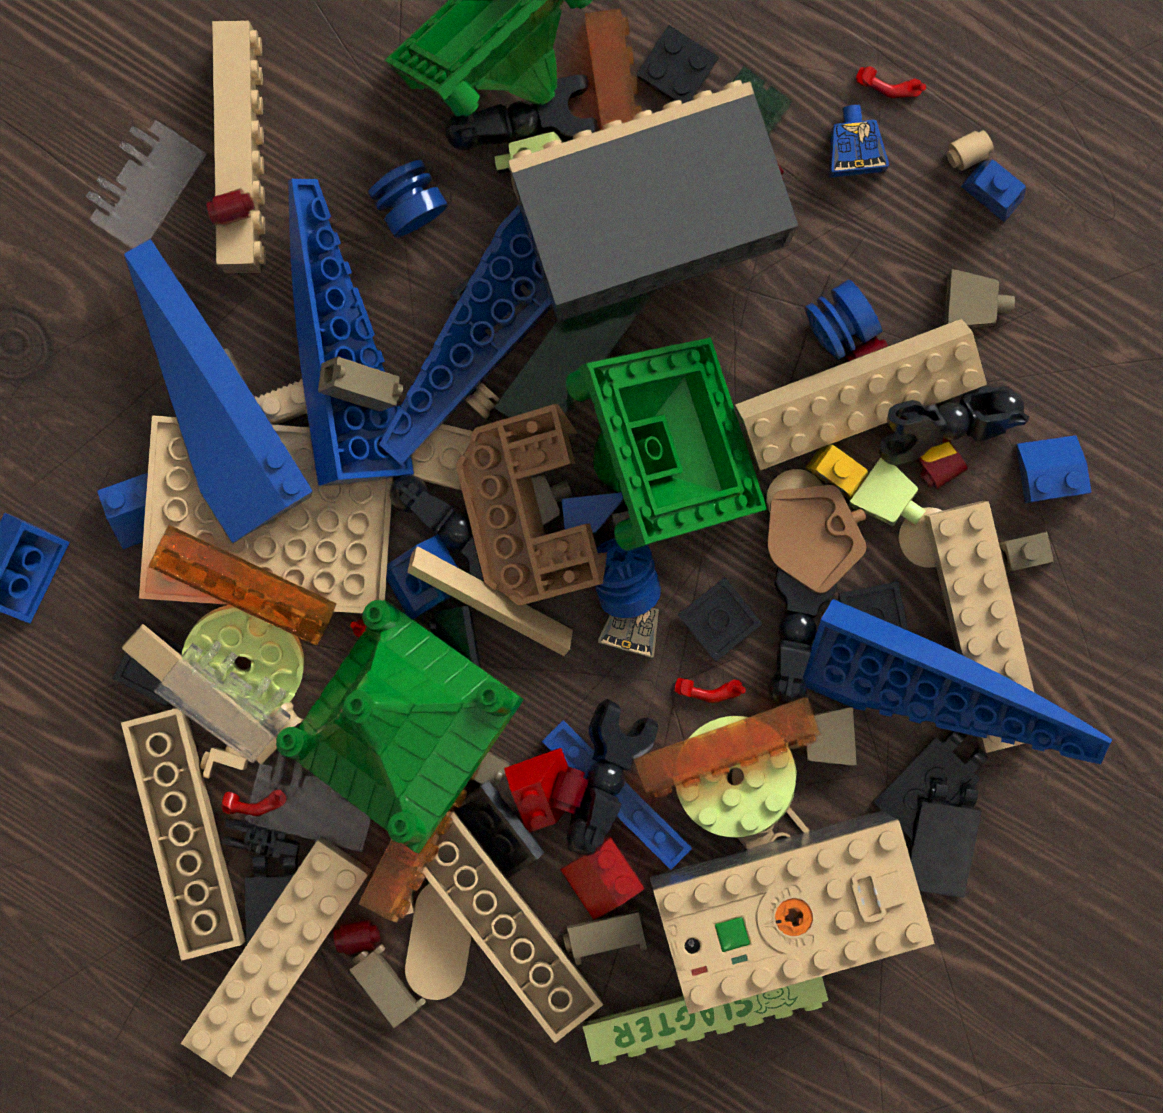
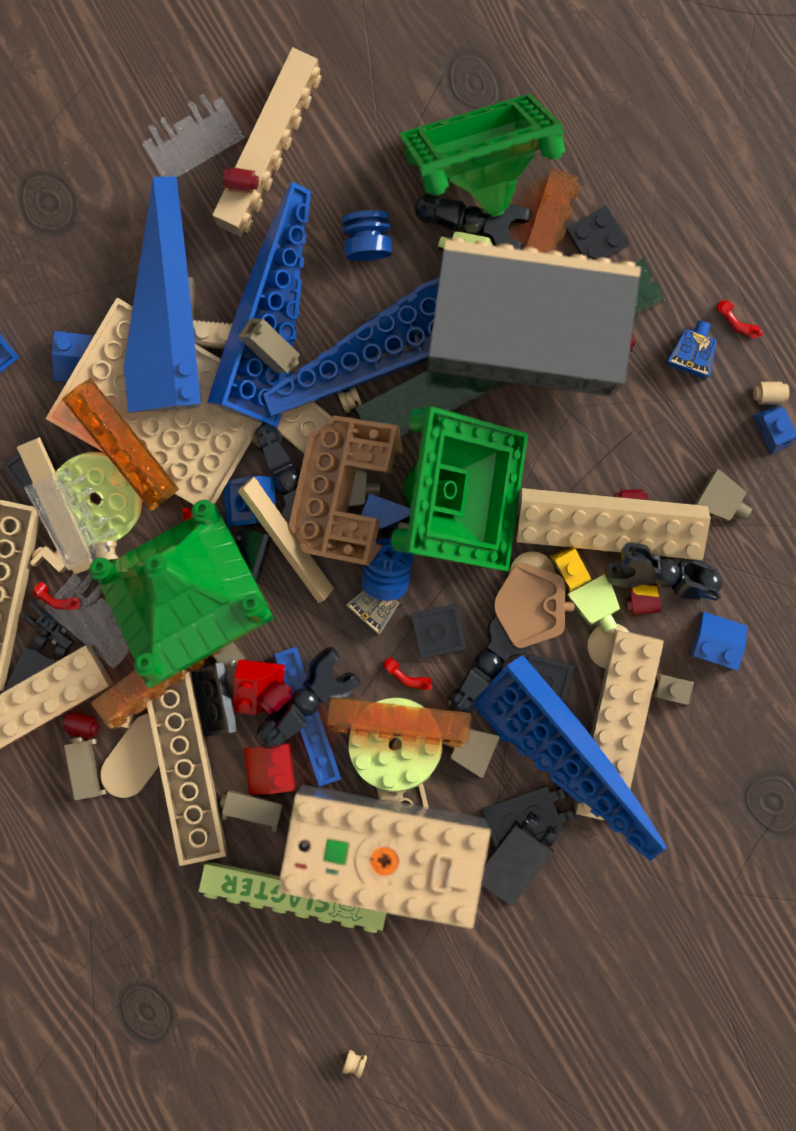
camera: 25 degrees right, 0 degrees up
(847, 317) = (630, 466): blue wheel -> none

